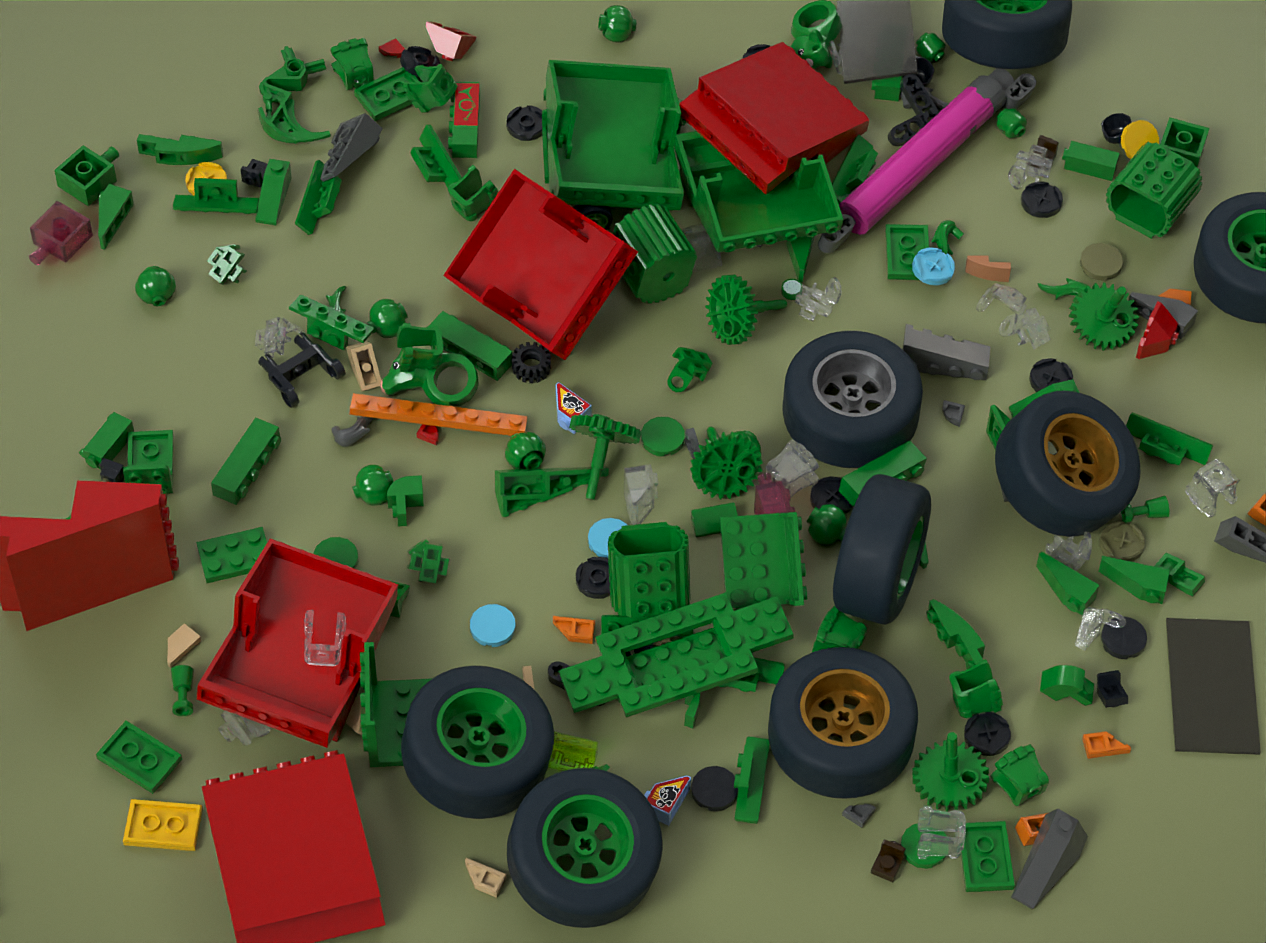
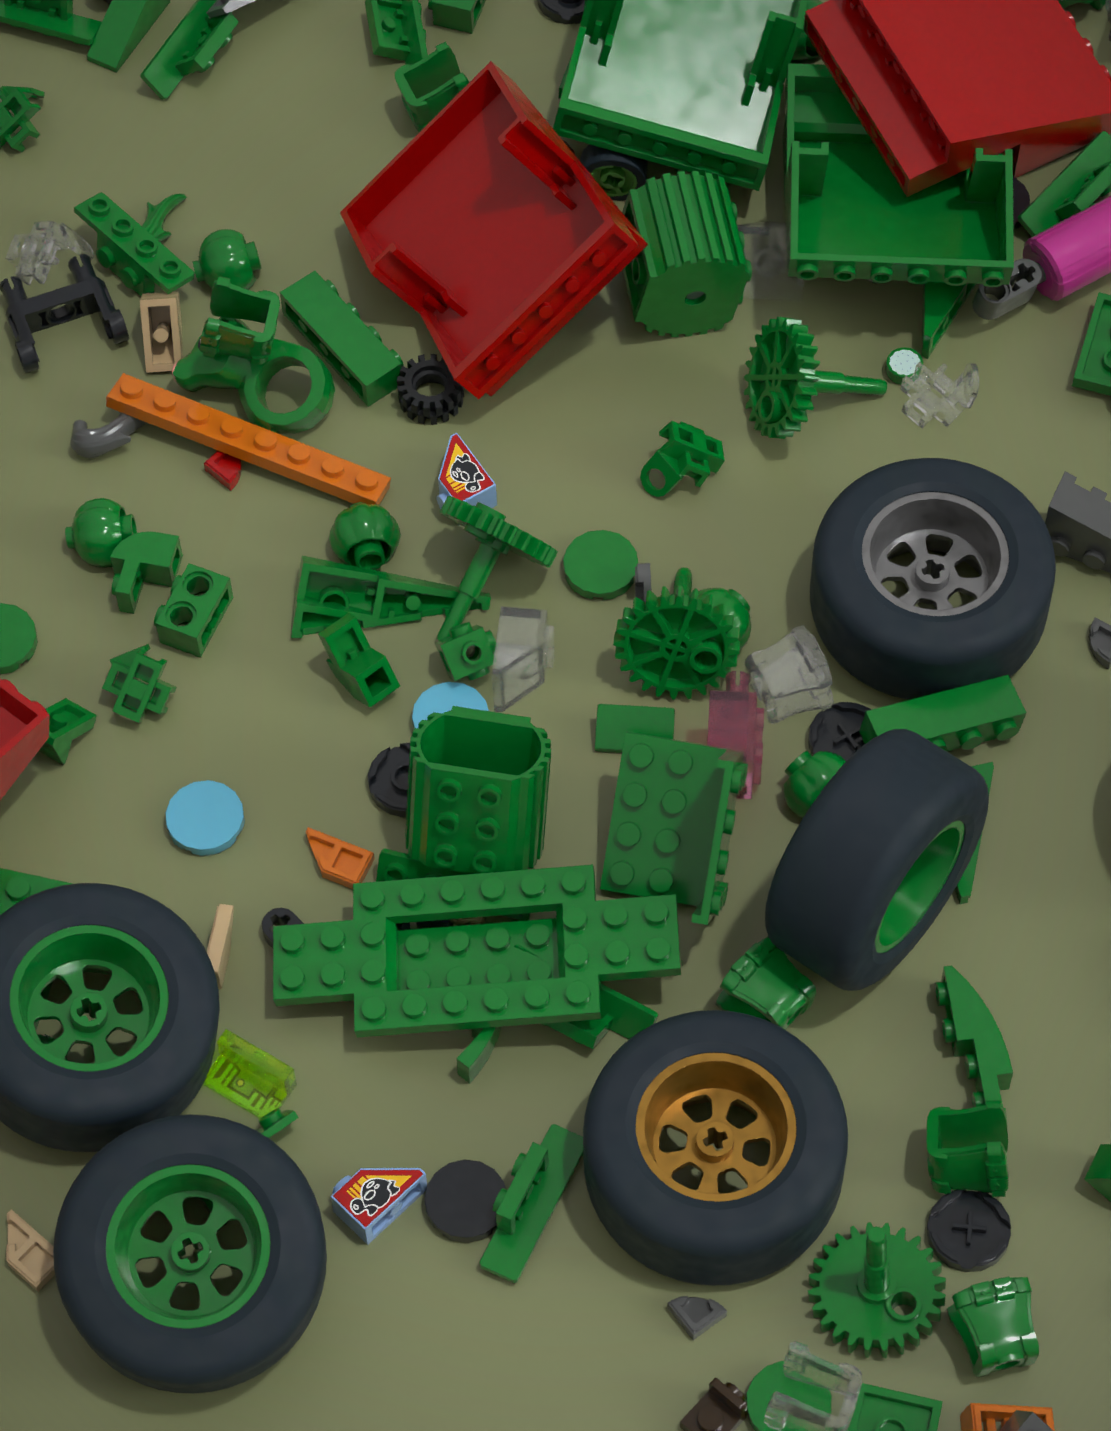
camera: 20 degrees right, 5 degrees up
(443, 514) = (200, 611): none -> green brick
(549, 523) = (355, 663): none -> green brick
(608, 499) = (454, 648): none -> green brick

